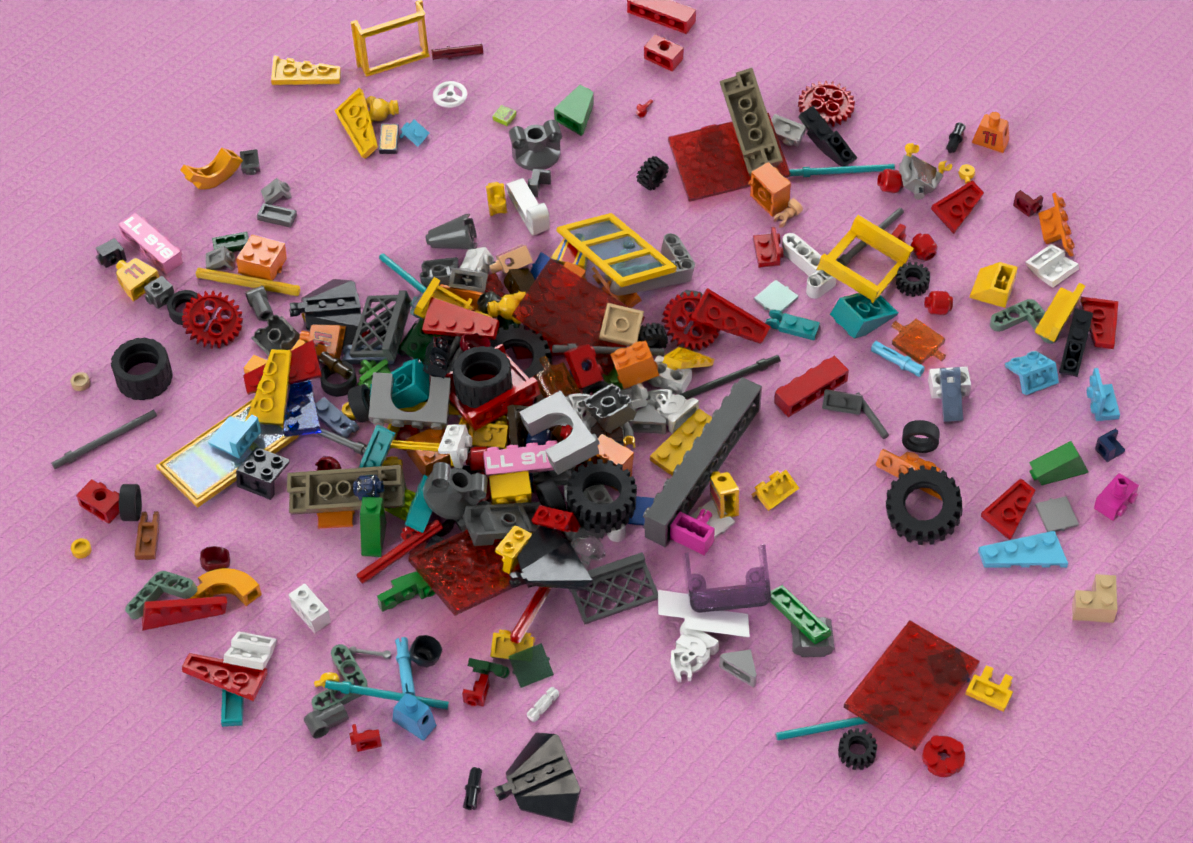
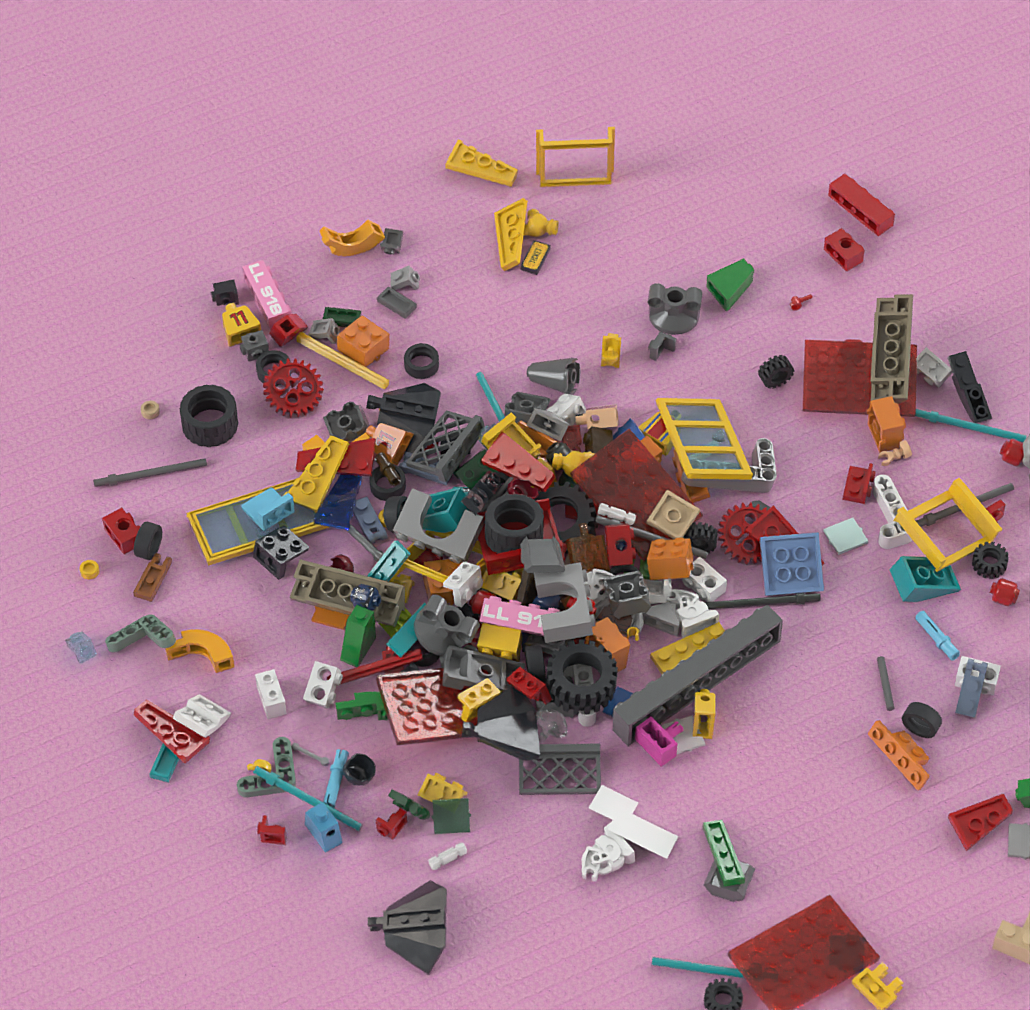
camera: 20 degrees right, 0 degrees up
(104, 623) = (81, 646): none -> clear light blue bracket
(171, 612) = (150, 657): red wing -> none
(184, 268) = (287, 329): none -> red slope
(214, 558) = (203, 618): dark red hair -> none
(258, 300) = (344, 381): dark grey piece -> none
(319, 250) = (421, 350): none -> black tyre
(321, 722) = (238, 803): dark grey piece -> none
(351, 583) = (317, 684): none -> white brick
(367, 367) = (429, 486): bright green hips -> none
(414, 132) = (562, 258): medium azure bracket -> none
(449, 97) = (611, 233): white piece -> none
(457, 51) = (638, 187): dark red pin -> none
(472, 789) = (349, 912): black axle -> none
(504, 115) = (658, 267): lime tile -> none
(522, 395) = (541, 555): none -> dark grey slope
(529, 614) = (468, 767): red axle -> none
(533, 214) = (640, 368): white beam -> none
(570, 338) = (616, 514): none -> white axle
(685, 358) = (723, 569): yellow wing -> none
(740, 665) = (647, 882): light grey slope -> none
(743, 335) = (791, 564): none -> medium blue plate
(753, 594) = (642, 809): clear purple windscreen -> none
(776, 490) = (757, 726): yellow bracket -> none
(793, 324) = (849, 568): teal hinge -> none
(811, 386) = (838, 635): red brick -> none
(829, 100) = (987, 351): red gear -> none
(842, 401) = (862, 660): dark grey plate -> none
(918, 341) = (966, 624): clear orange plate -> none
(924, 246) = (1016, 530): red head -> none
(924, 529) = (900, 812): black tyre -> none
(1037, 549) = (979, 867): medium azure wing -> none

